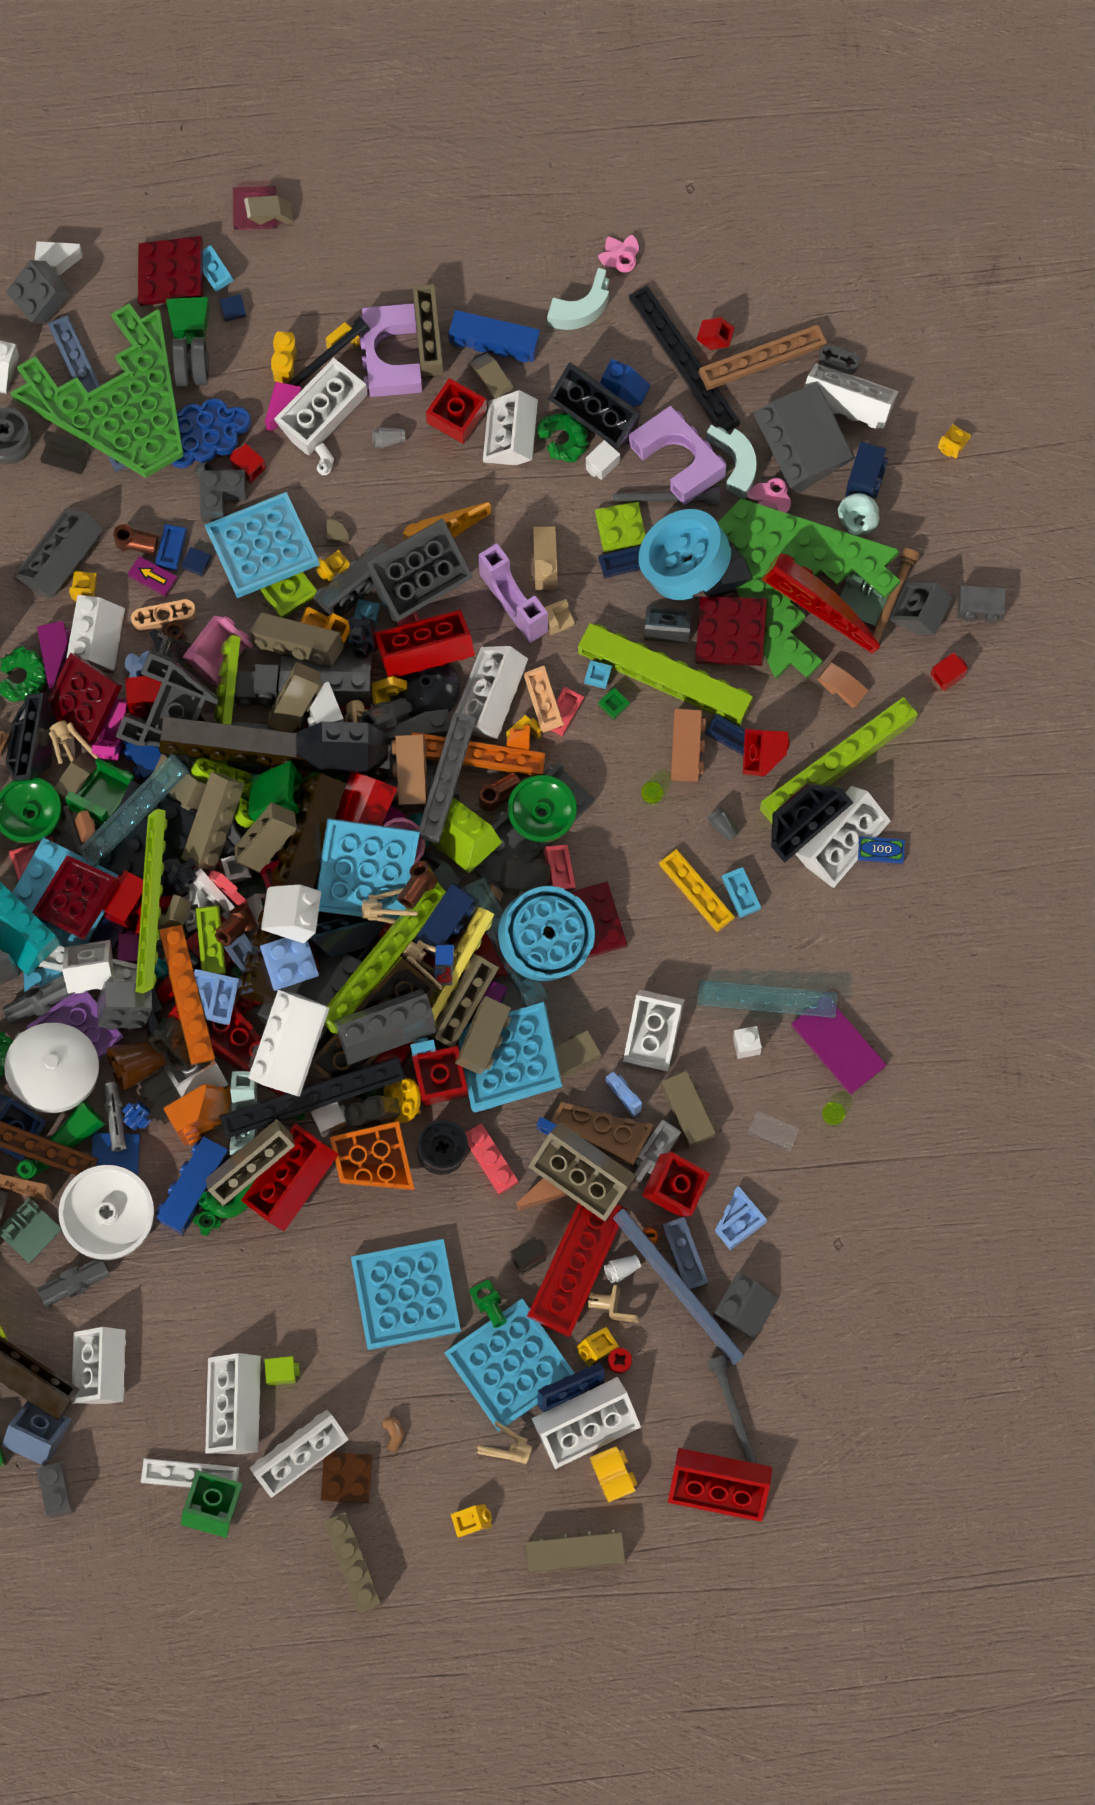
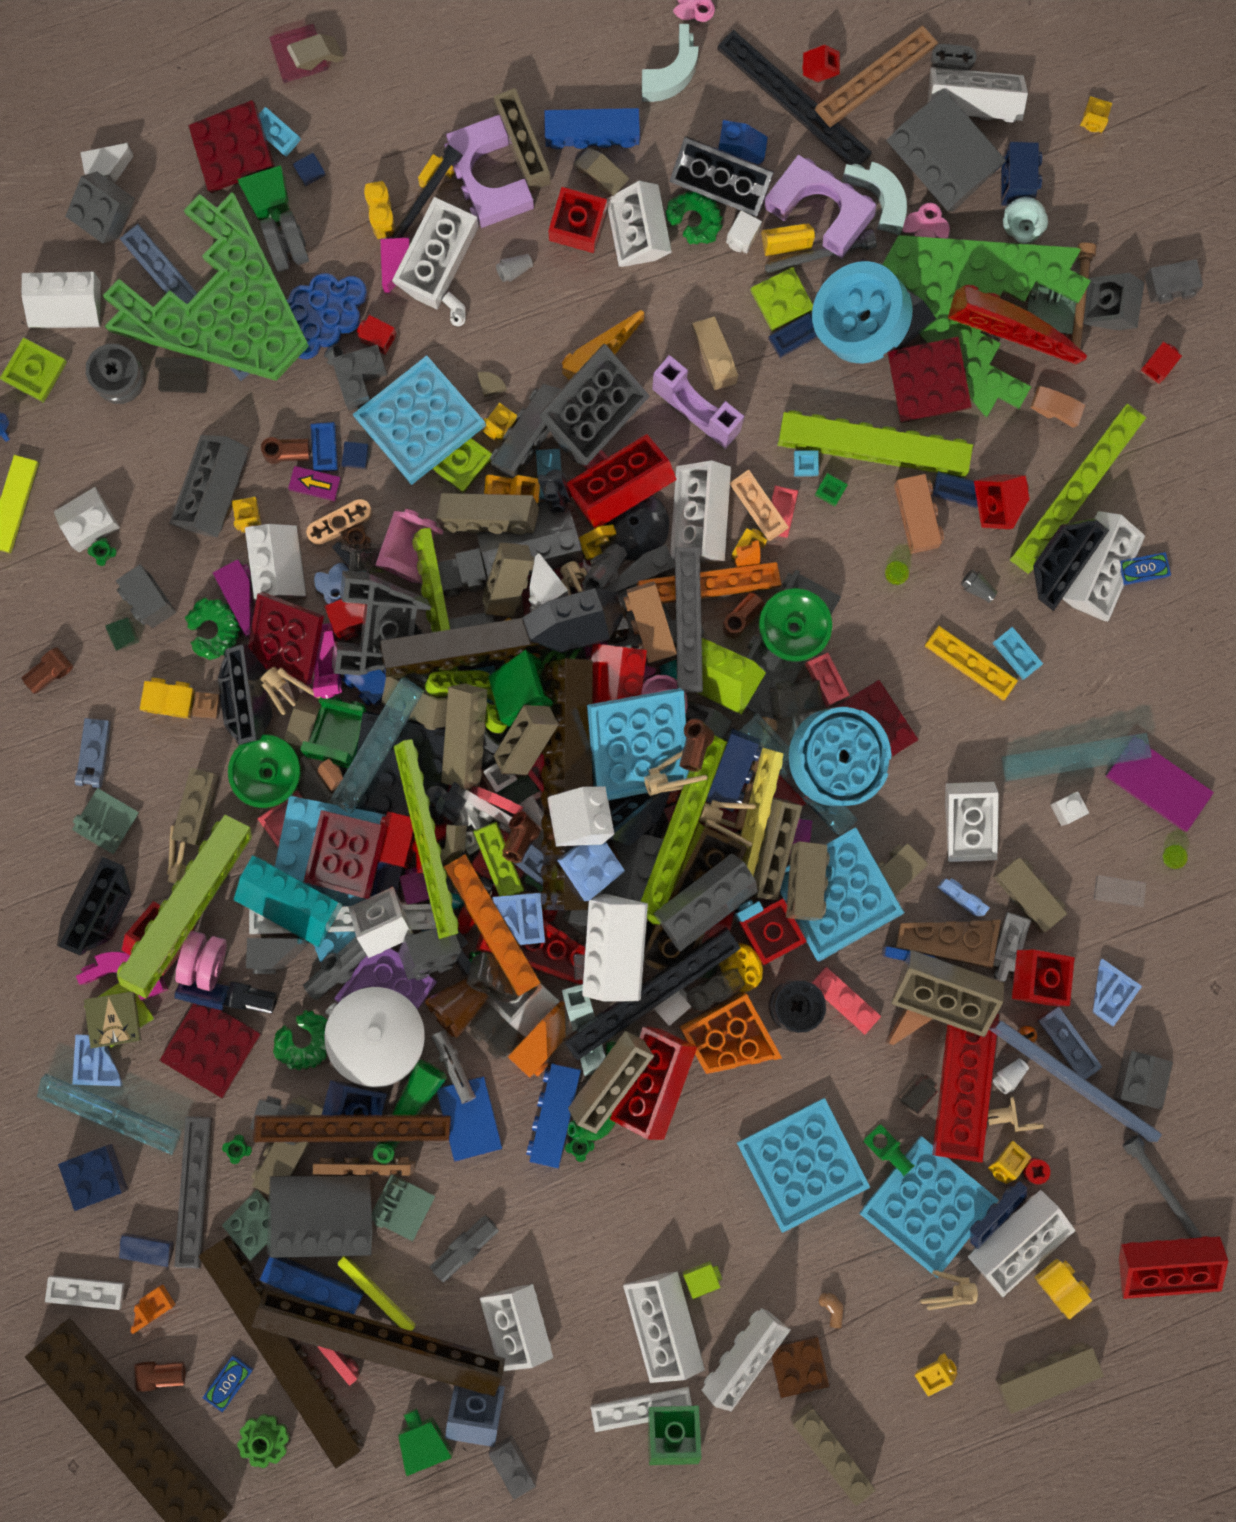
camera: 20 degrees left, 10 degrees up
(106, 1212) = (477, 1170): white dish -> none
(136, 1115) = (475, 1059): blue gear -> none
(444, 964) = (746, 819): sticker -> none
(559, 617) = (750, 411): tan panel -> none
(640, 477) = (788, 239): none -> yellow tile
(667, 625) = (861, 390): flat silver slope -> none

